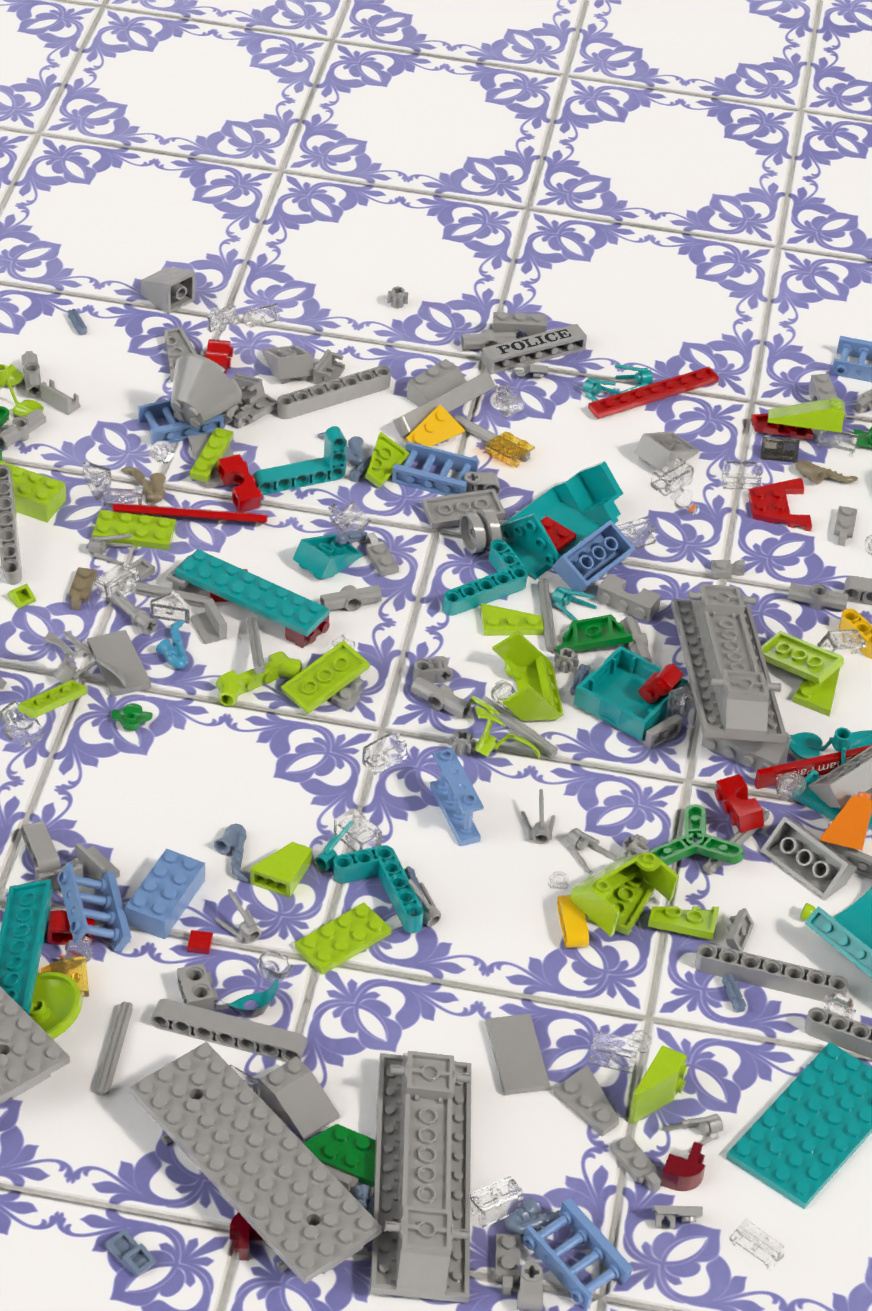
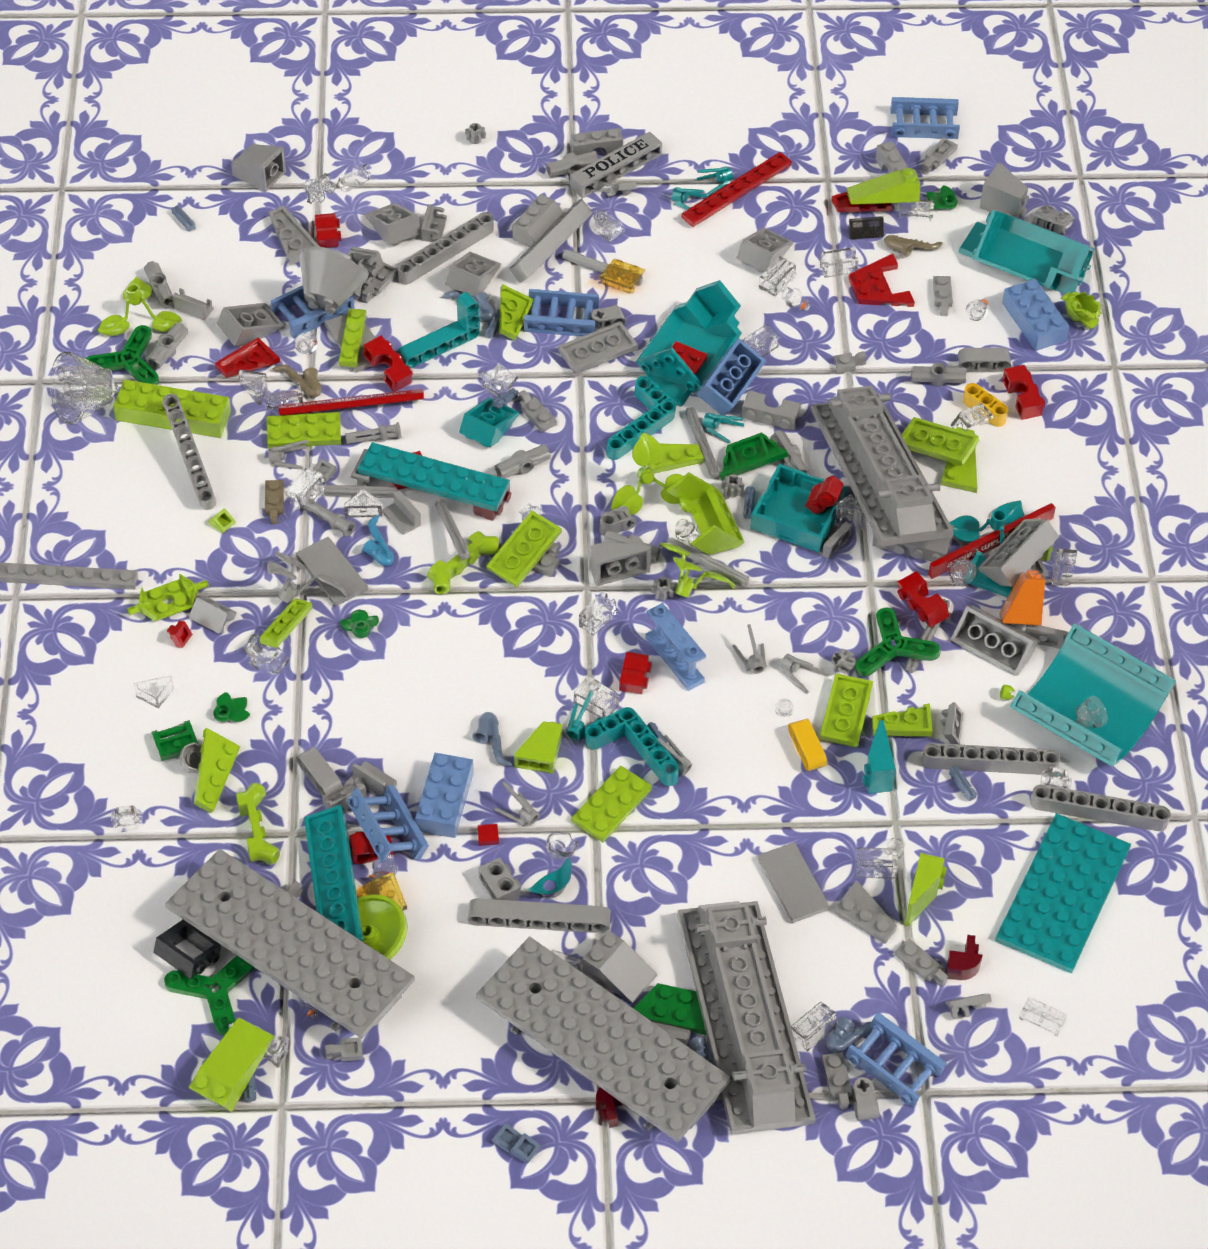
camera: 10 degrees left, 10 degrees up
(103, 453) = (248, 357): none -> red wing
(109, 423) = (248, 322): none -> light grey slope
(114, 1048) = (444, 954): light grey axle -> none
(179, 545) = (383, 430): none -> light grey pin
(353, 418) = (471, 273): none -> light grey slope
(406, 816) = (634, 673): none -> red brick
(421, 706) = (618, 561): none -> light grey slope
(435, 428) = (549, 269): yellow wing -> none
(476, 603) = (645, 452): none -> lime plant
(479, 529) = (621, 369): light grey wheel -> none
(594, 891) = (823, 716): lime windscreen -> none
(644, 952) = (880, 764): none -> teal slope
(708, 1125) = (973, 915): light grey plant -> none

